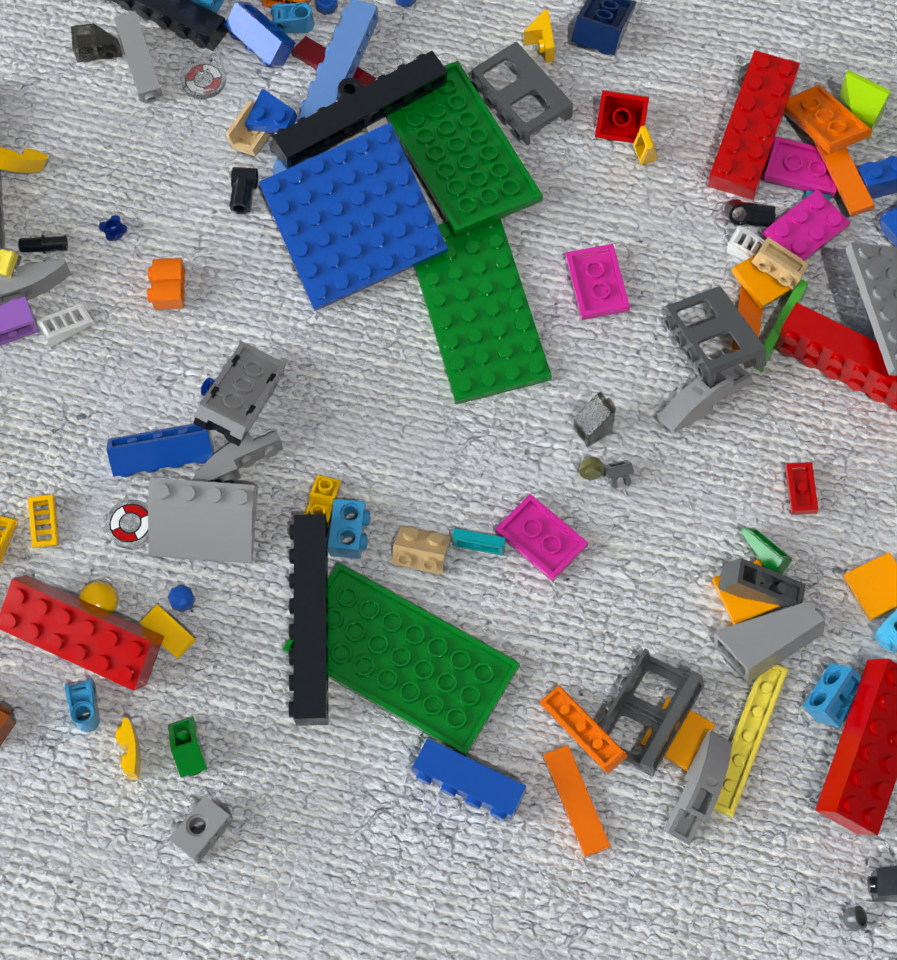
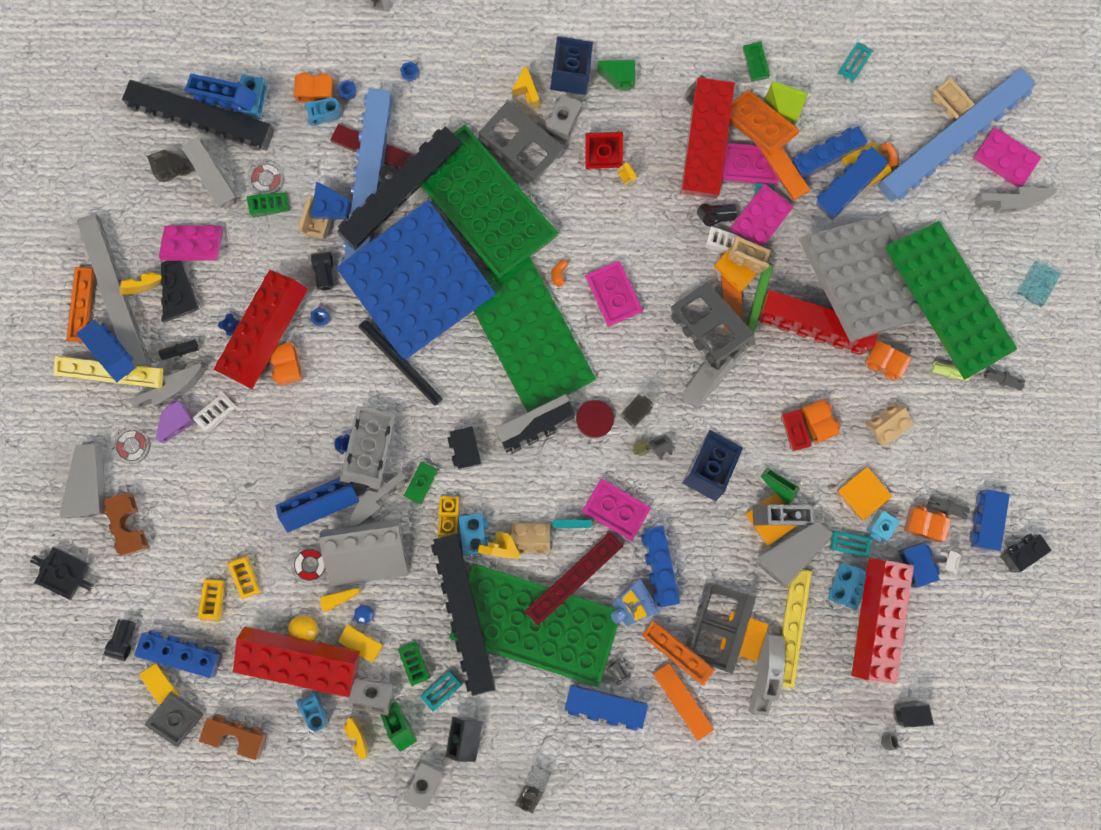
camera: 20 degrees left, 15 degrees up
(61, 180) = (177, 292): none -> black wing
(93, 129) = (190, 243): none -> dark pink plate
(148, 235) = (260, 329): none -> red brick
(151, 570) = (333, 600): none -> yellow slope
(162, 699) = (379, 704): none -> light grey brick
(189, 98) = (267, 197): none -> green slope
(224, 240) = (320, 317): none -> blue tile
(235, 692) = (414, 681): none -> green slope
(259, 34) = (301, 131): brick -> none
(261, 724) = (429, 702): none -> teal tile
(269, 779) = (465, 734): none -> black brick
(297, 455) = (420, 483): none -> green plate
(309, 311) = (402, 365): none -> black axle
(344, 868) = (532, 789): none -> clear smoke slope
(363, 422) = (465, 448): none -> black brick
(379, 548) = (502, 547): none -> yellow slope
(459, 409) = (535, 424): none -> black piece
(464, 609) = (573, 579): none -> dark red tile
(496, 741) = (618, 672): none -> dark grey bush
(531, 244) = (556, 273): none -> orange arm
(537, 657) = (634, 604): none -> torso
(539, 423) = (594, 419): none -> dark red tile
(581, 74) = (563, 128): none -> light grey brick
(584, 618) = (661, 567): none -> blue brick
(659, 38) = (618, 73): none -> green slope
(680, 509) = (713, 466): none -> dark blue slope
(834, 55) = (756, 61): none -> green plate
(835, 482) = (819, 421): none -> orange brick
(845, 645) = (834, 540): none -> teal tile

